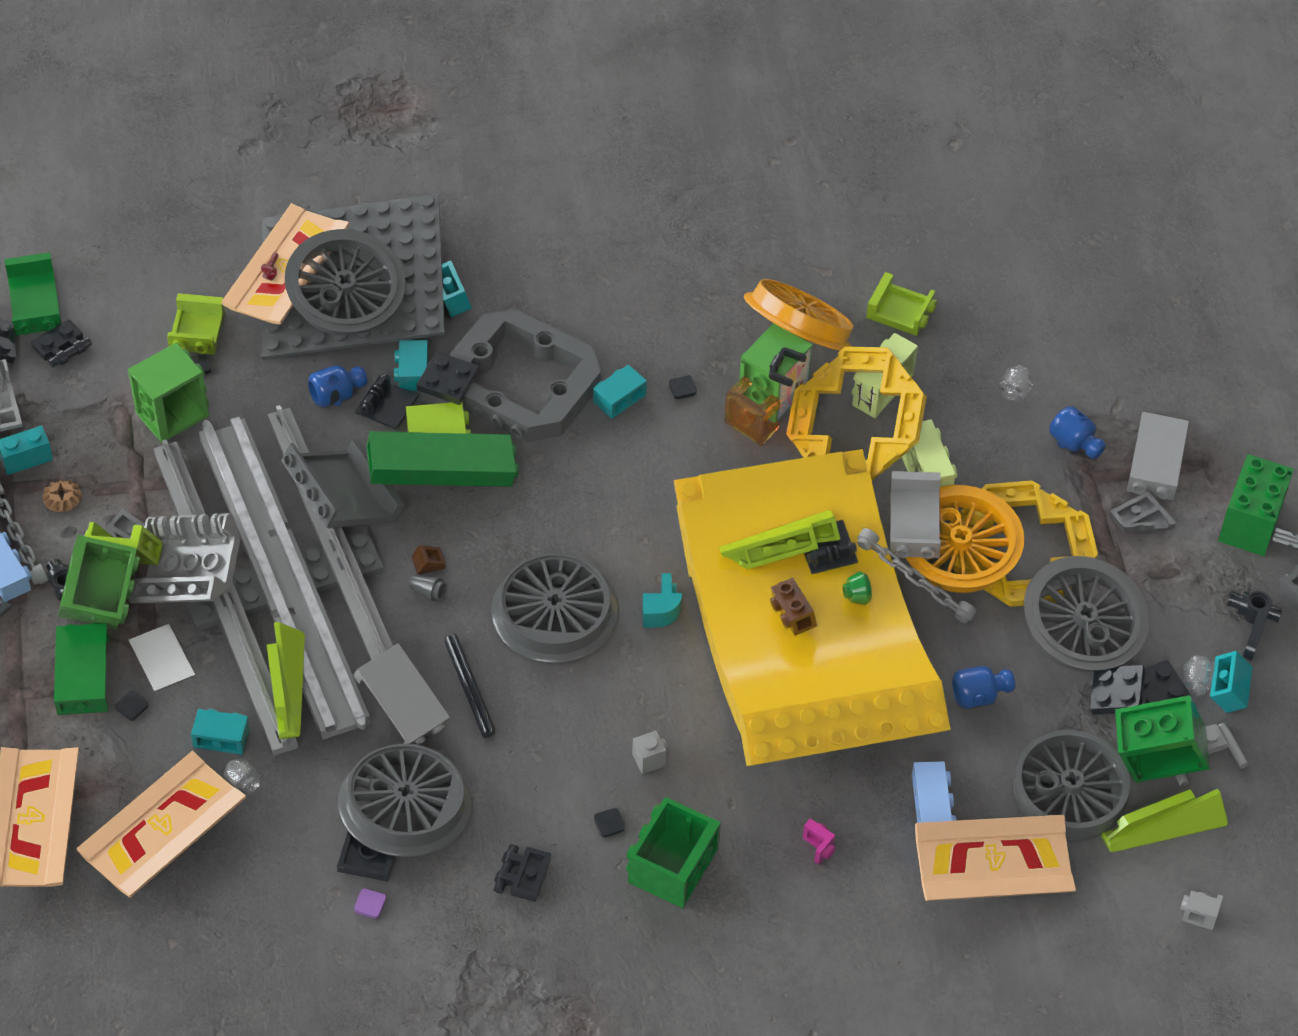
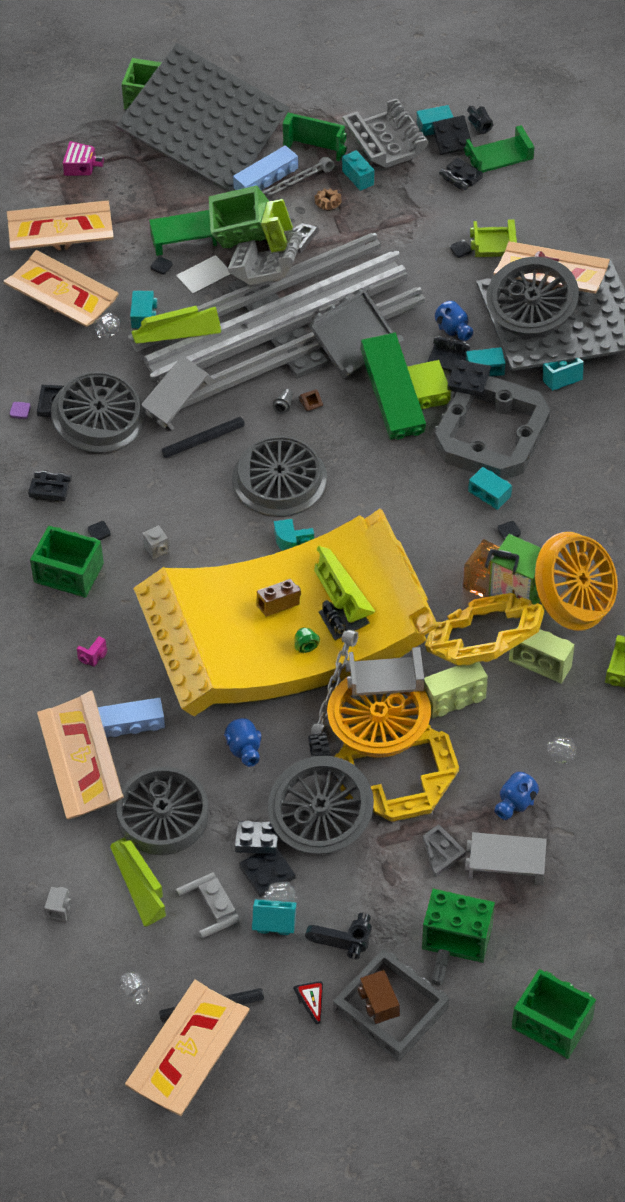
camera: 85 degrees right, 0 degrees up
(169, 392) = (414, 225): bright green container -> none
(1003, 608) = (318, 745): none -> black tyre
(1162, 739) = (195, 855): green container -> none

